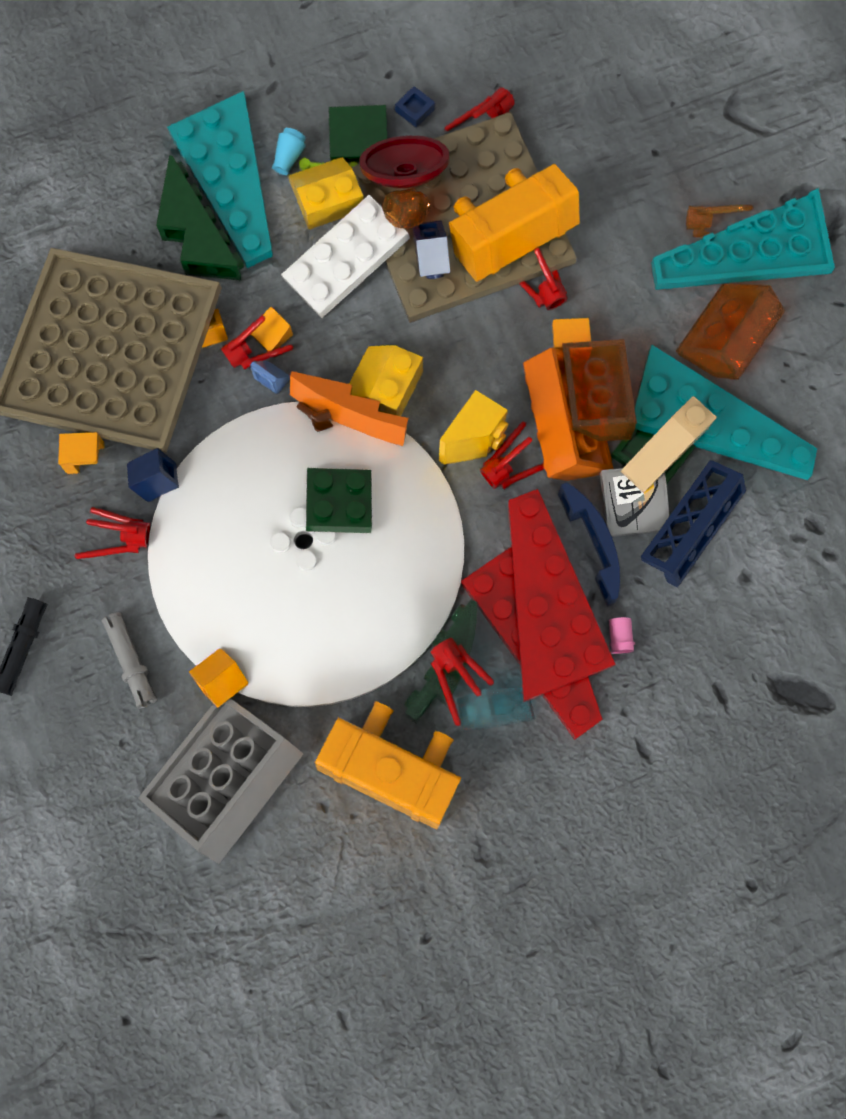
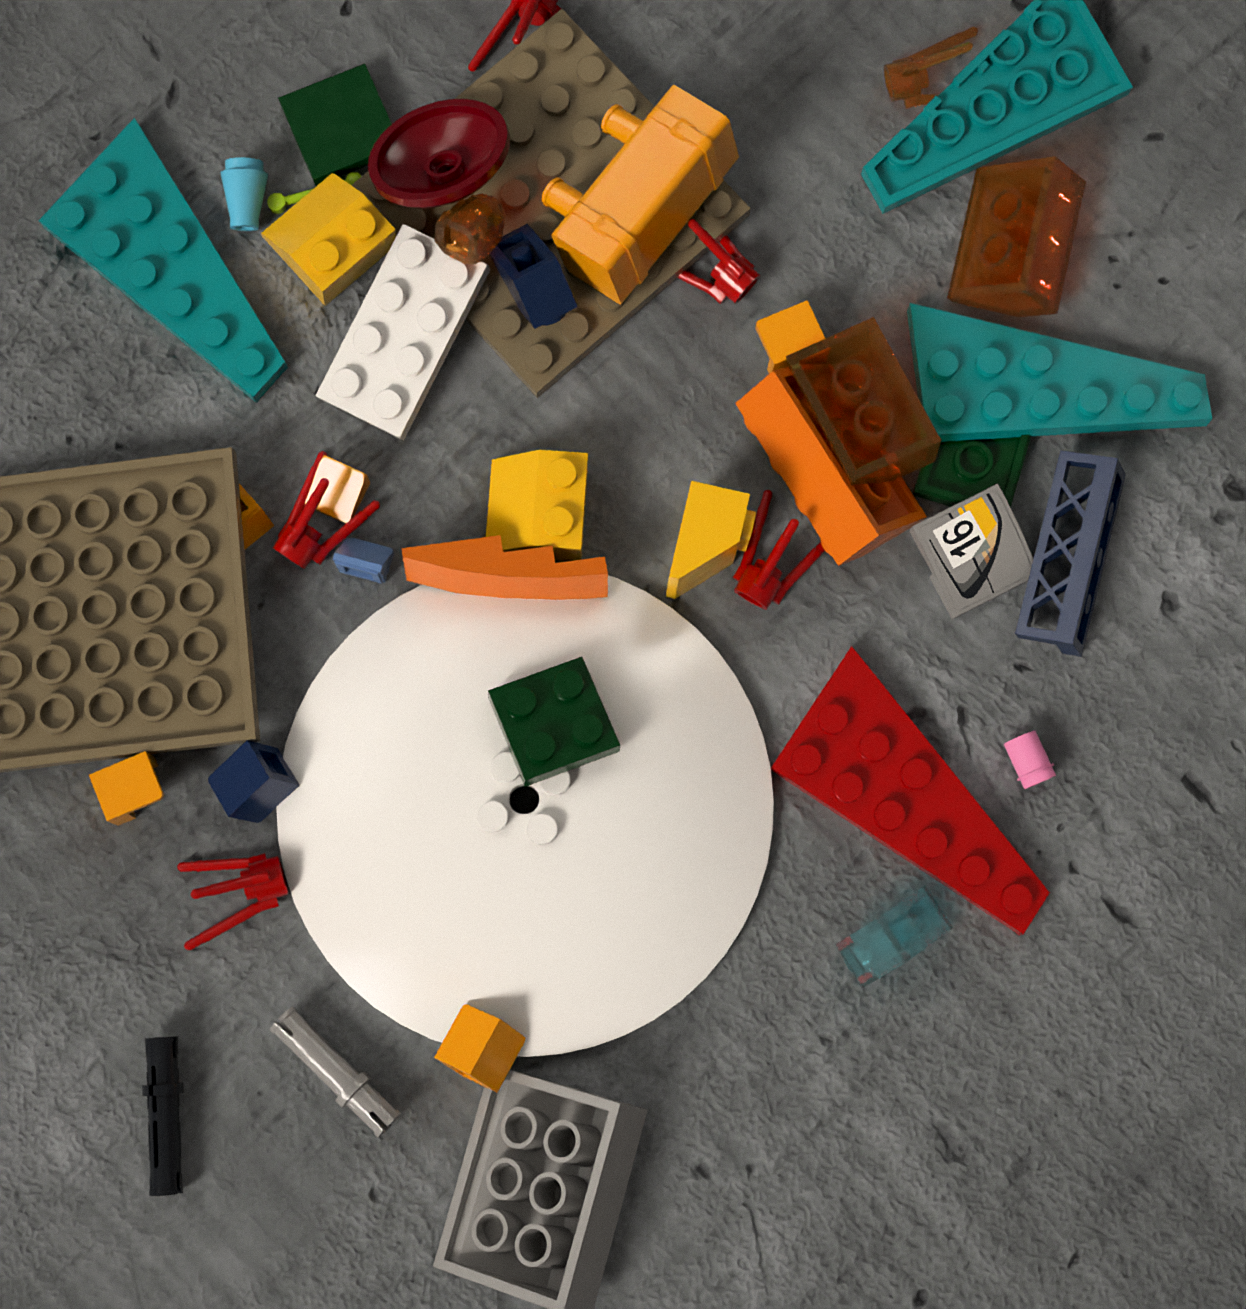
camera: 25 degrees left, 5 degrees up
(187, 221) = (136, 362): dark green slope -> none
(319, 420) = (471, 606): reddish brown hand -> none
(388, 771) = (784, 1090): light orange piece -> none
(415, 106) = (411, 50): dark blue plate -> none
(451, 657) = (807, 891): red plant -> none
(463, 633) = (804, 876): clear green slope -> none
(554, 619) = (925, 769): red wing -> none
(577, 507) = (895, 590): dark blue slope -> none
(669, 444) = (998, 454): tan slope -> none

